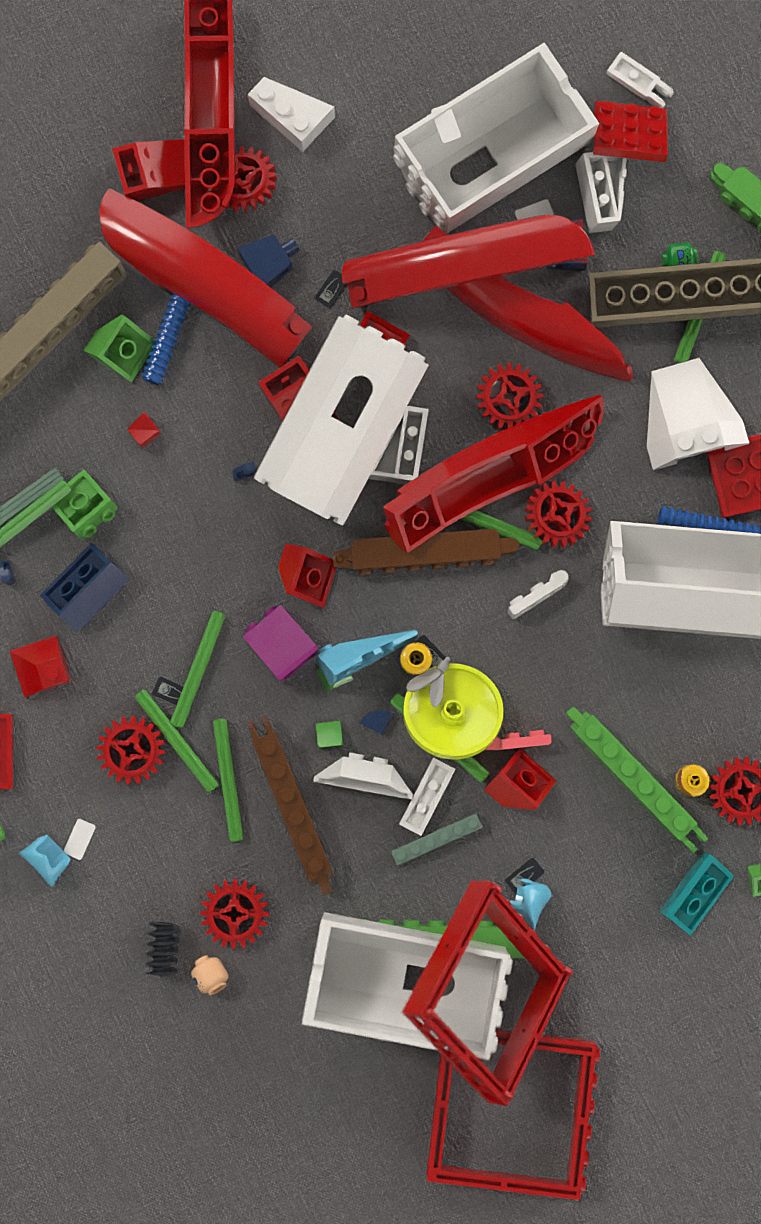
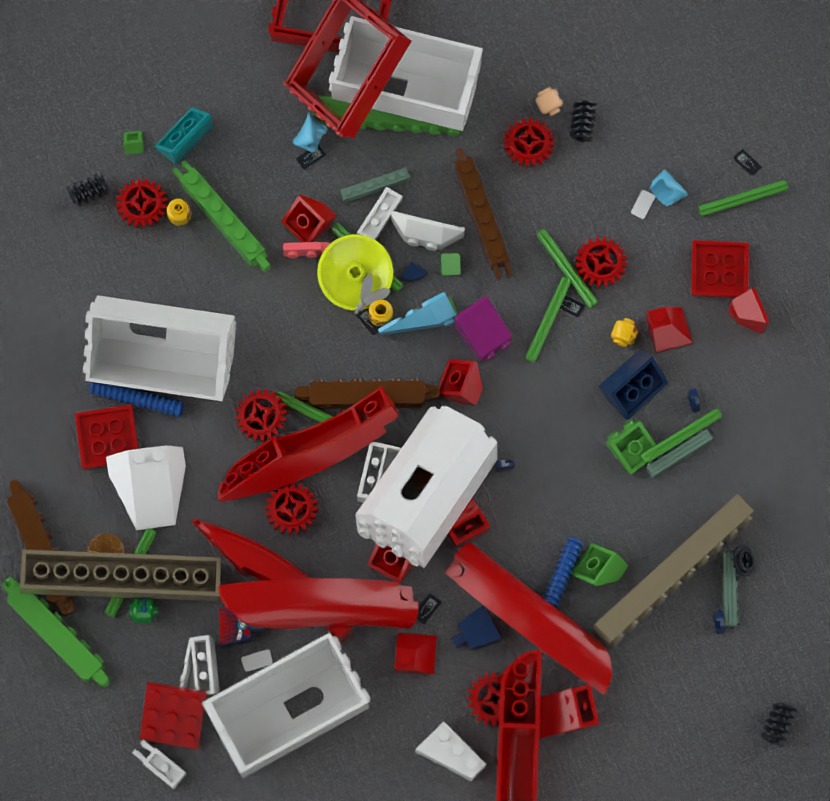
camera: 170 degrees left, 10 degrees down
(97, 654) = (624, 332): none -> yellow head
(143, 430) = (582, 502): red slope -> none
(228, 780) = (529, 238): bright green axle -> none
(342, 229) = (415, 653): none -> red slope
(447, 125) = (325, 709): white sticker -> none
(539, 593) = (281, 356): white hinge -> none
(734, 334) = (106, 544): none -> clear orange wheel

